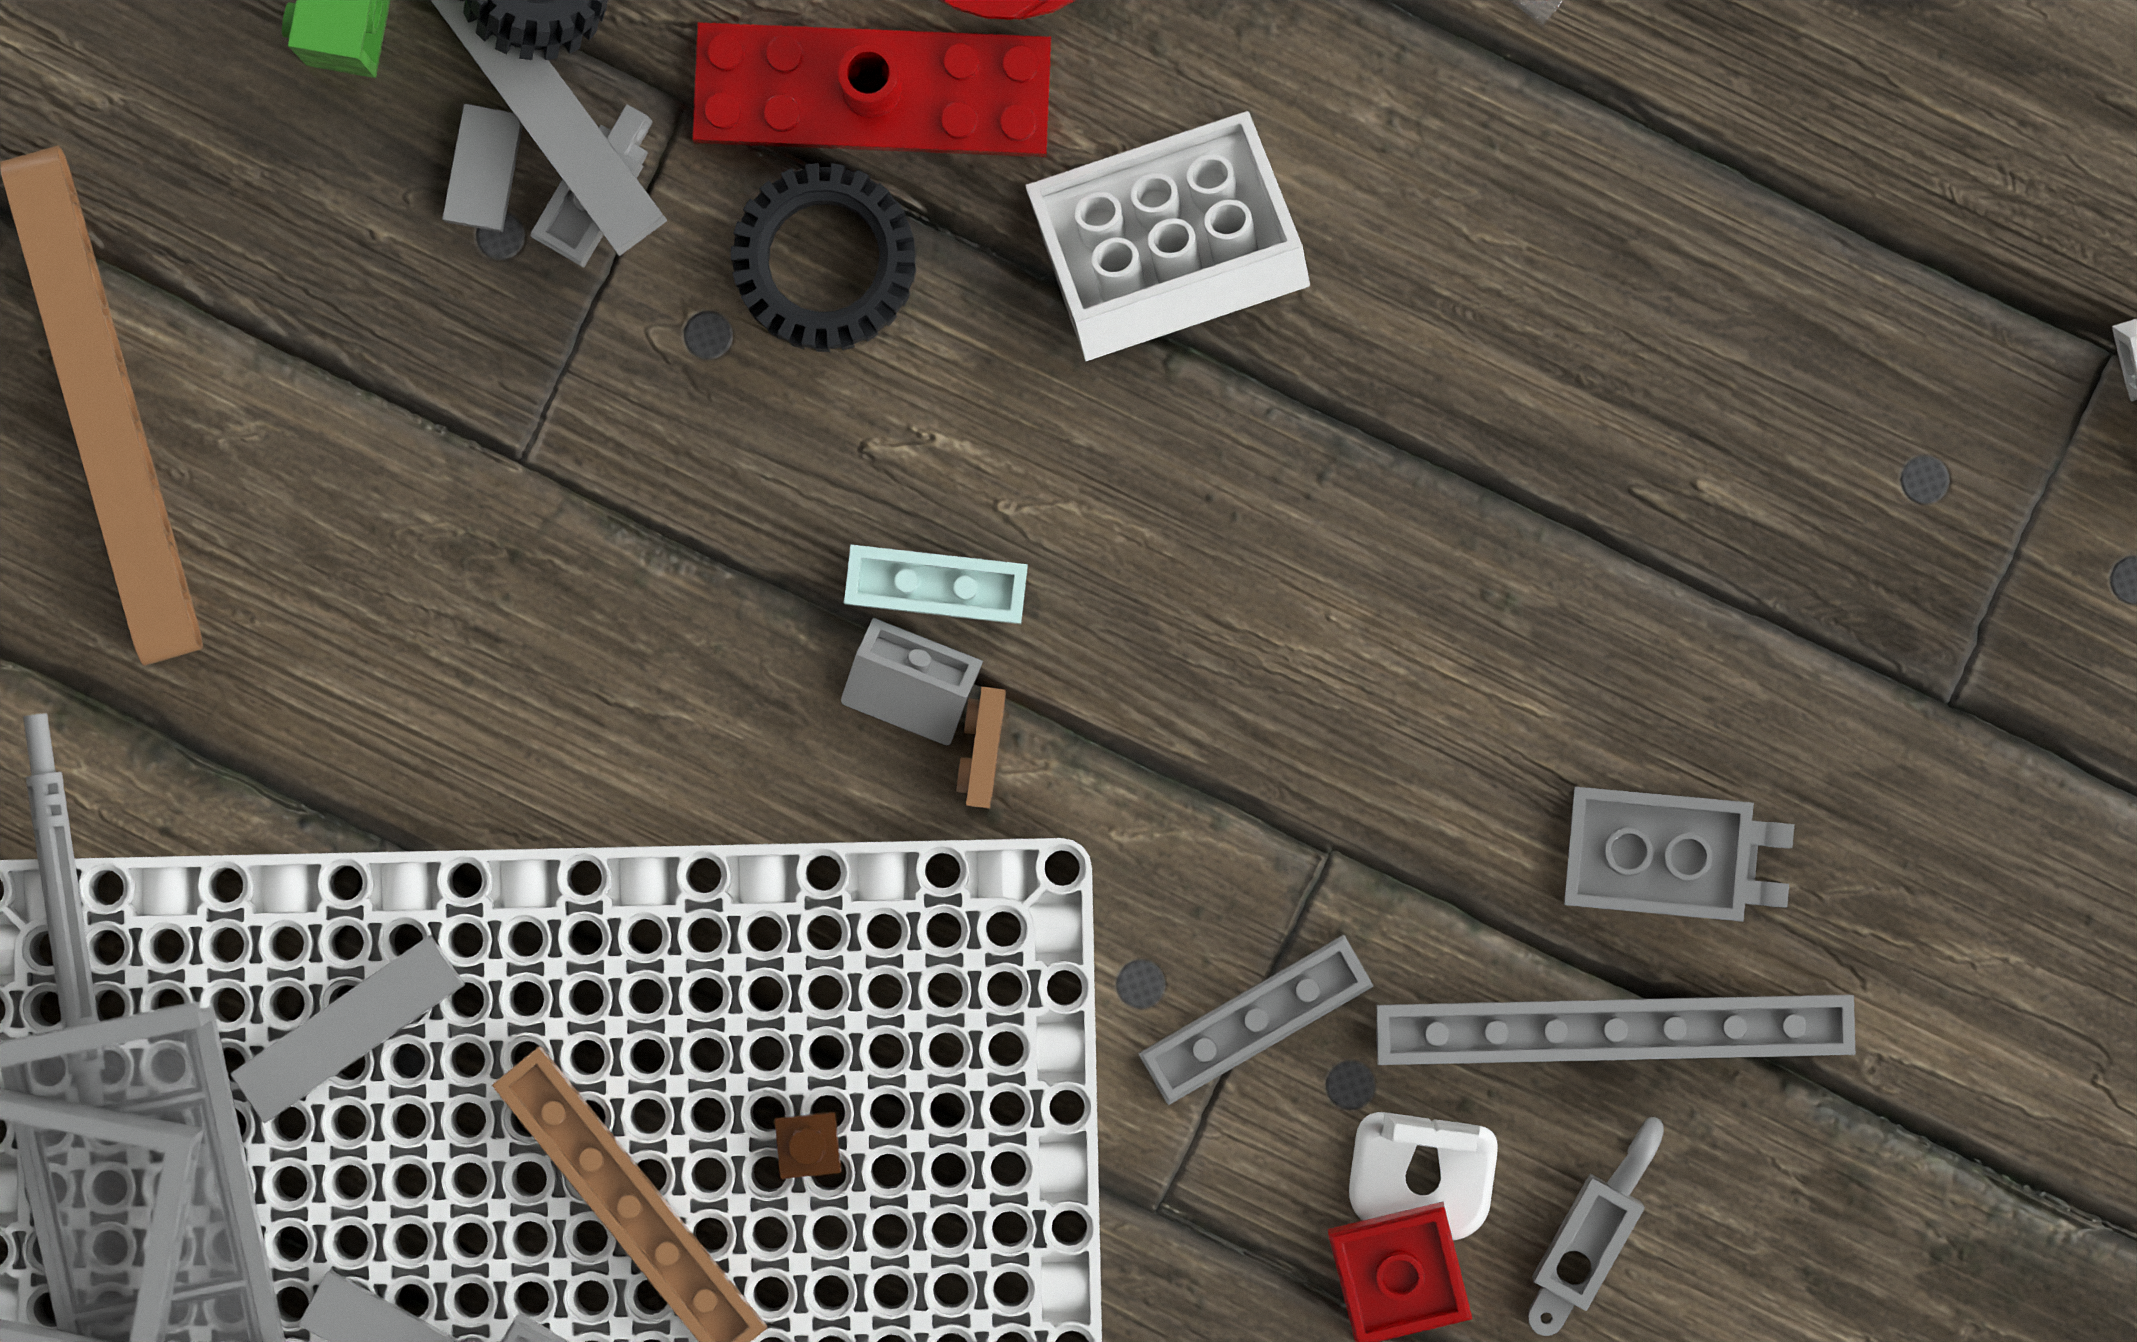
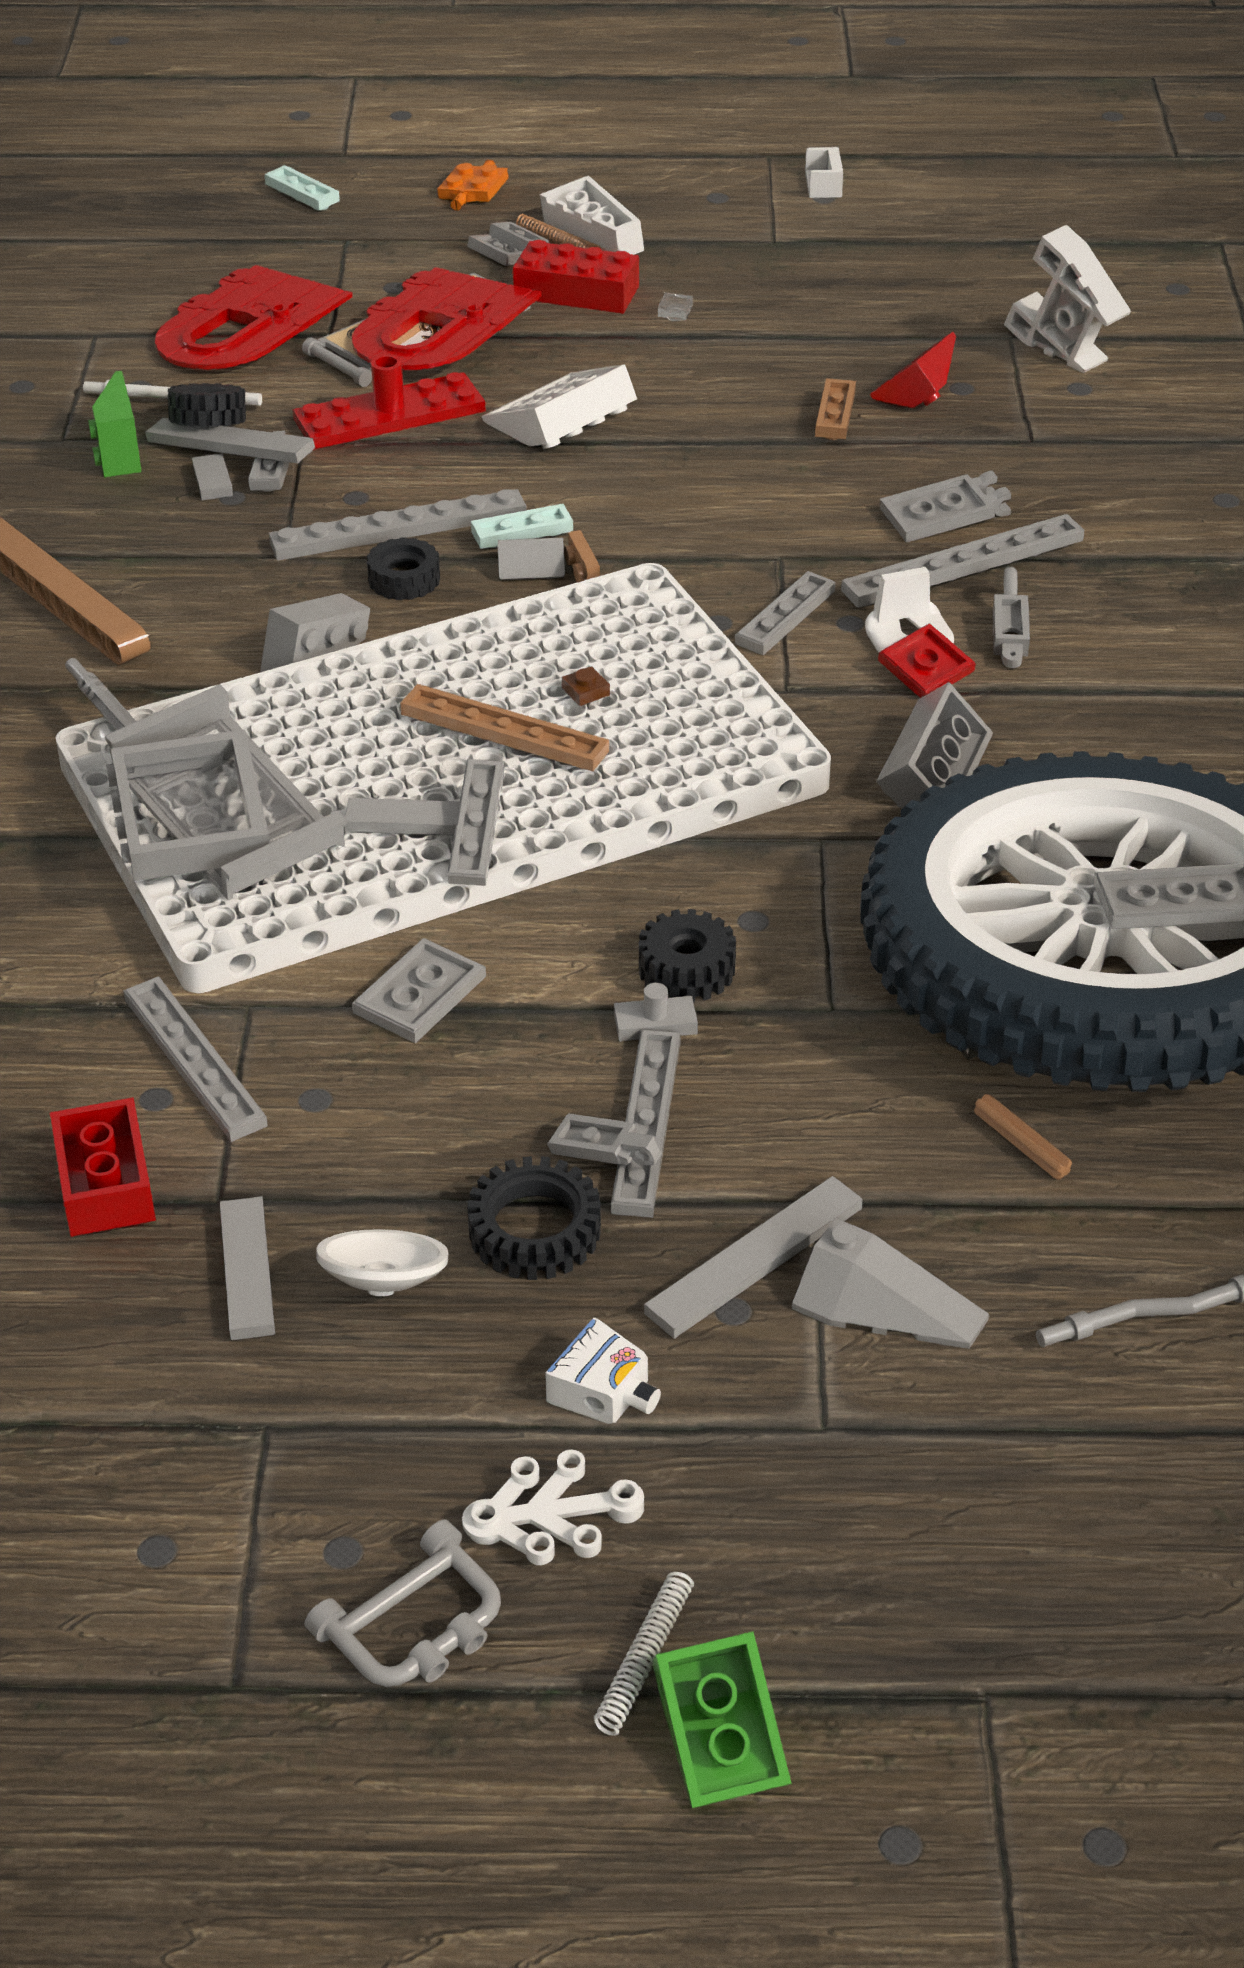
camera: 25 degrees left, 45 degrees down
(347, 1029) = (309, 717): light grey tile -> none
(465, 763) = (313, 629): none -> light grey wedge
(644, 604) = (403, 553): none -> black tyre
(739, 466) = (394, 524): none -> light grey plate
(822, 187) = (402, 470): black tyre -> none
(1649, 470) = (835, 409): none -> medium nougat plate
(1849, 448) = (920, 378): none -> red wedge

